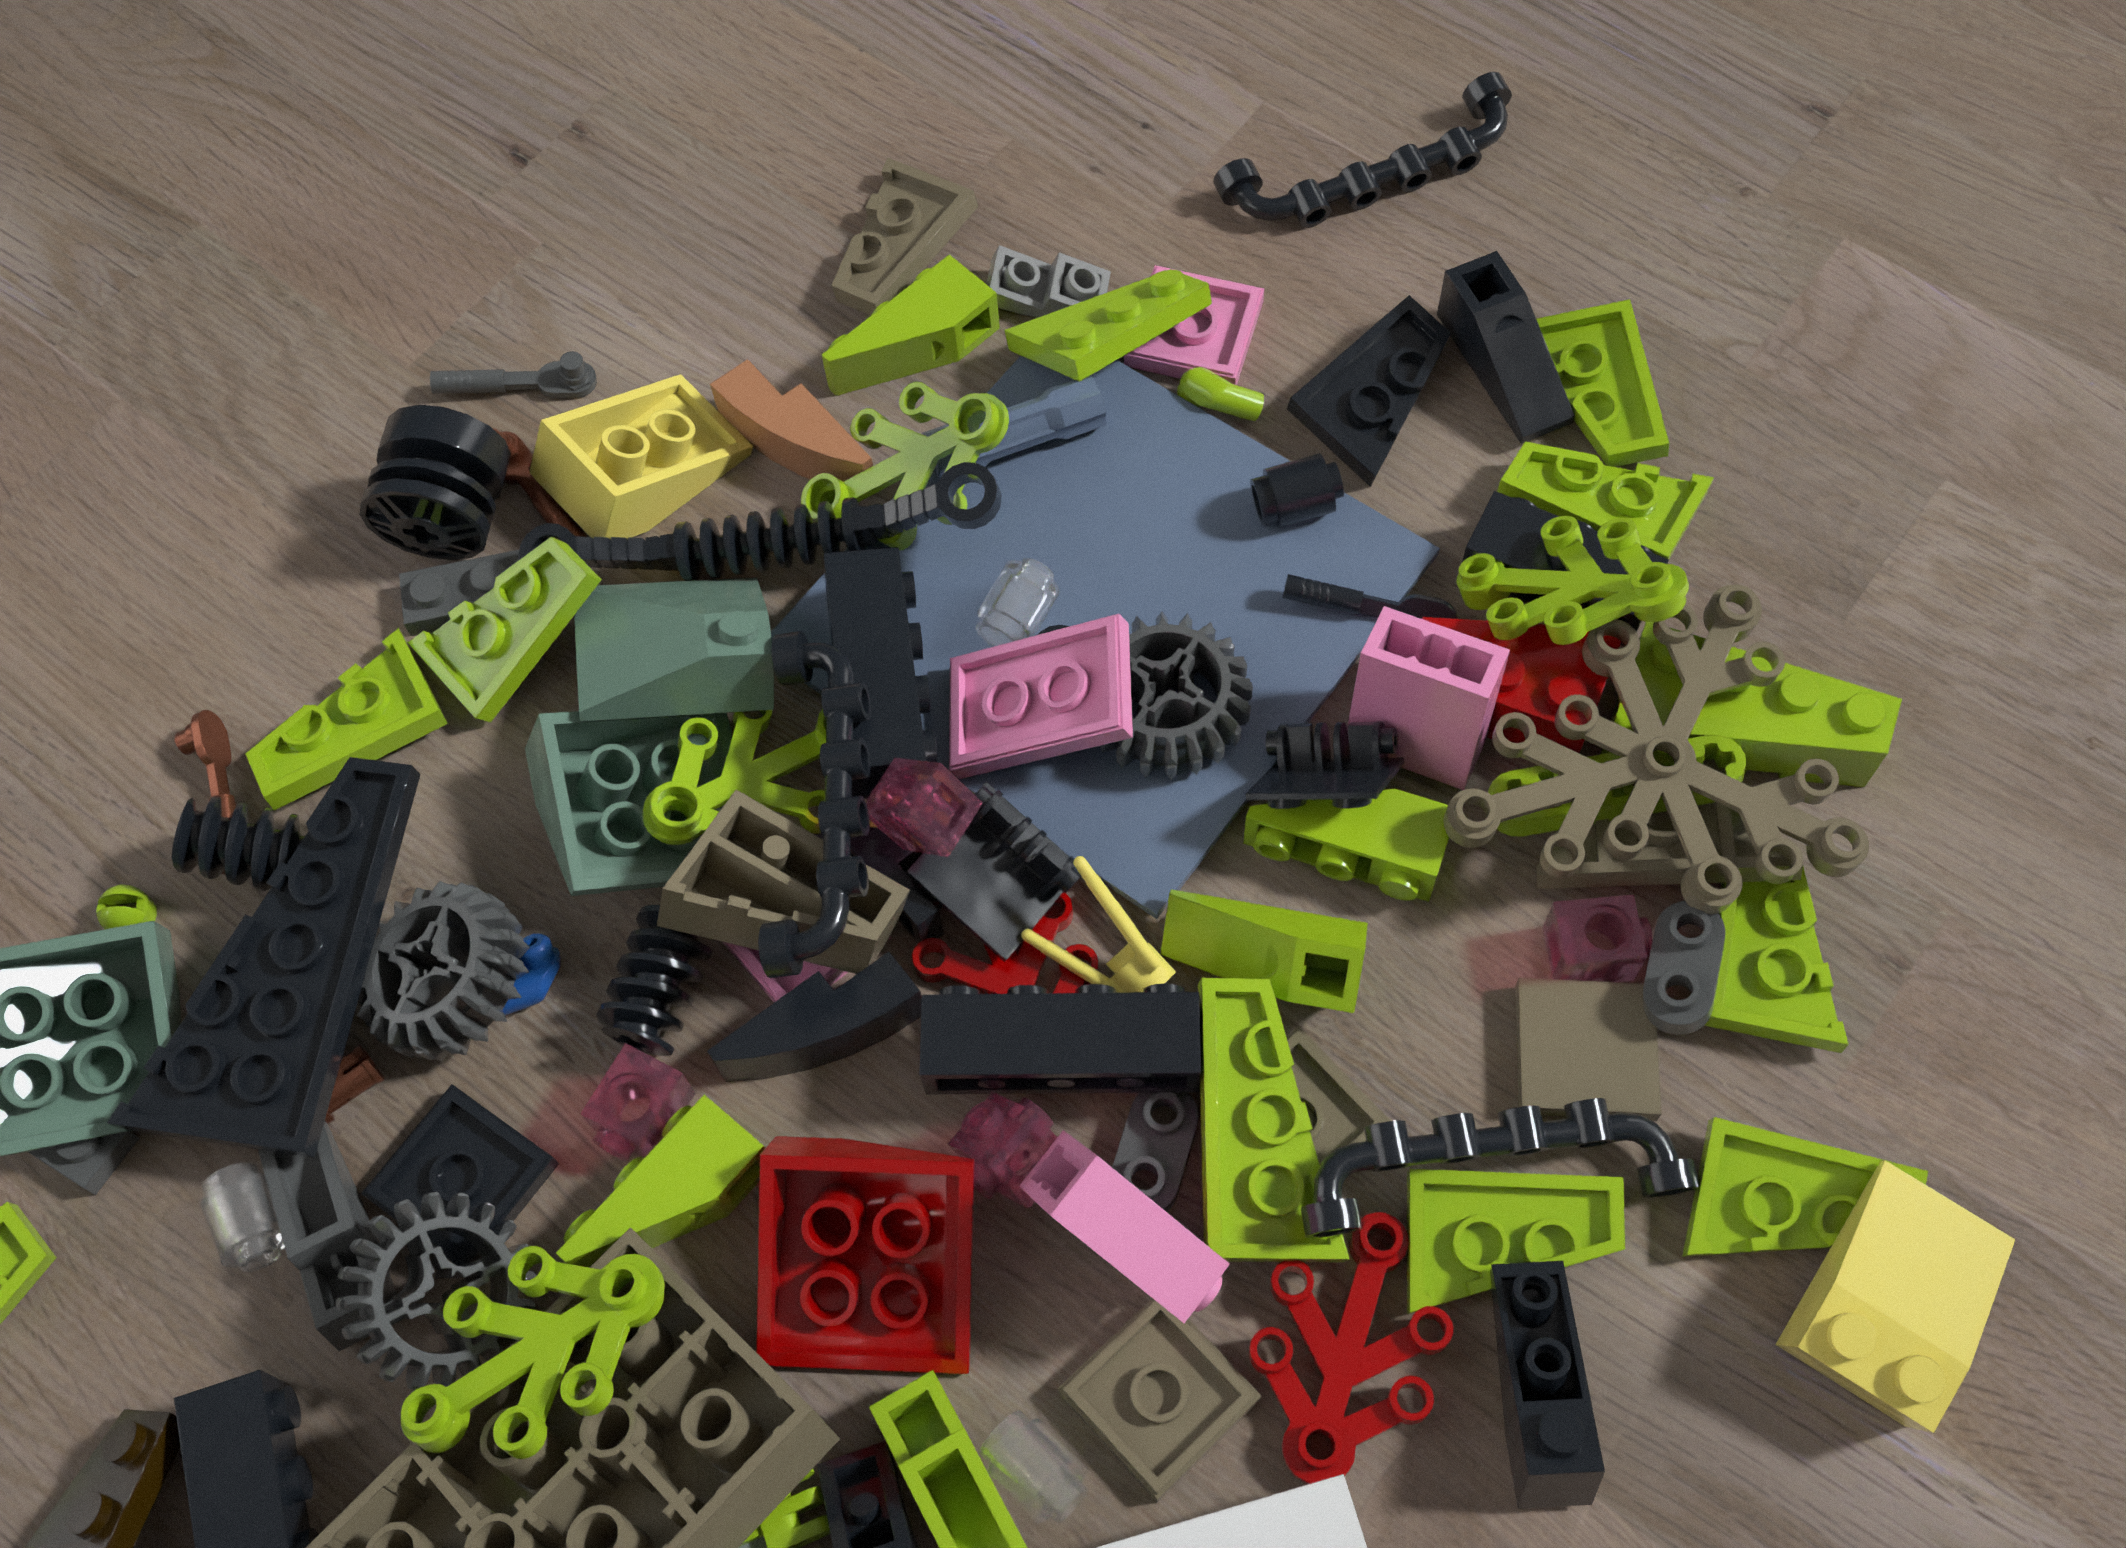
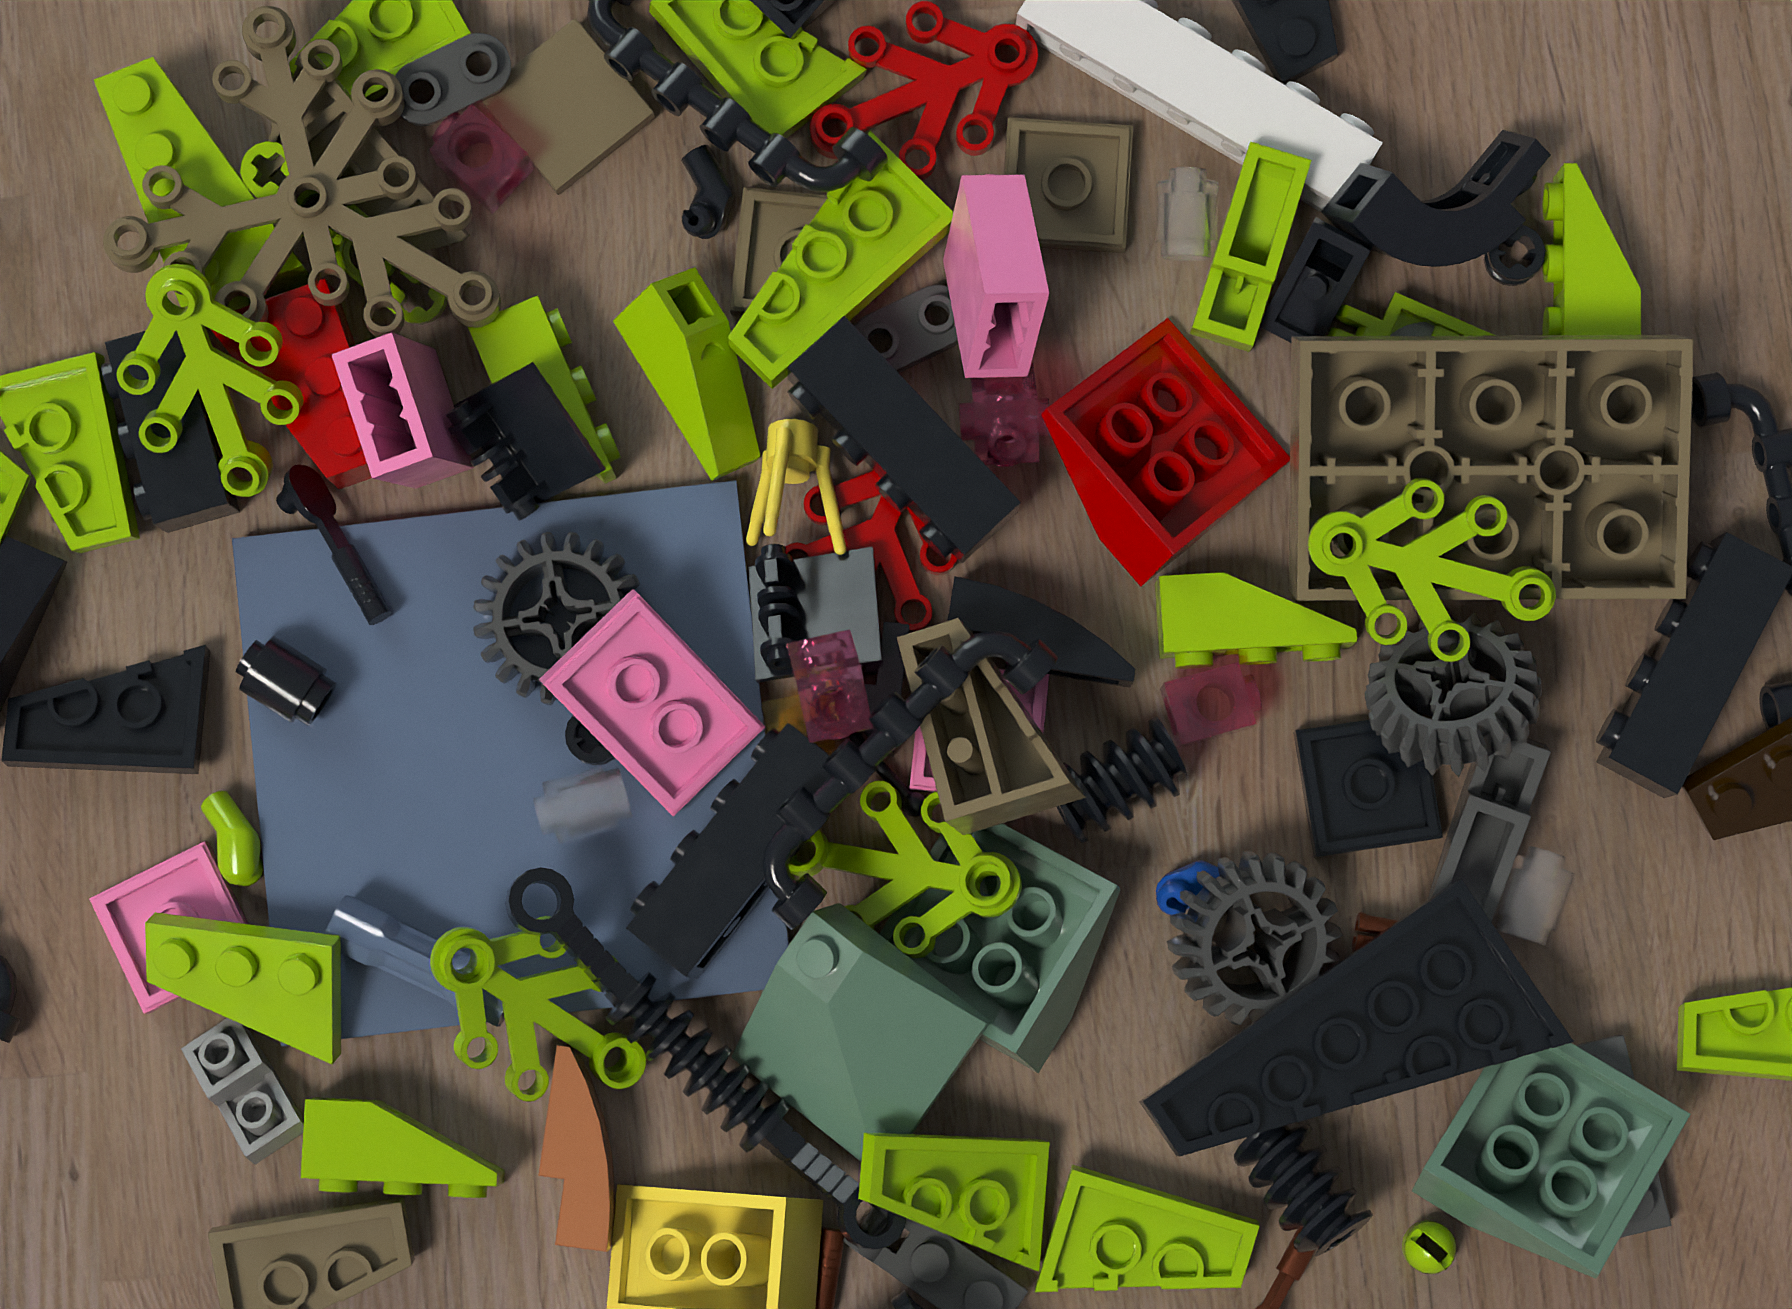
camera: 135 degrees left, 20 degrees up
(1404, 1092) = (713, 194): none -> black arm

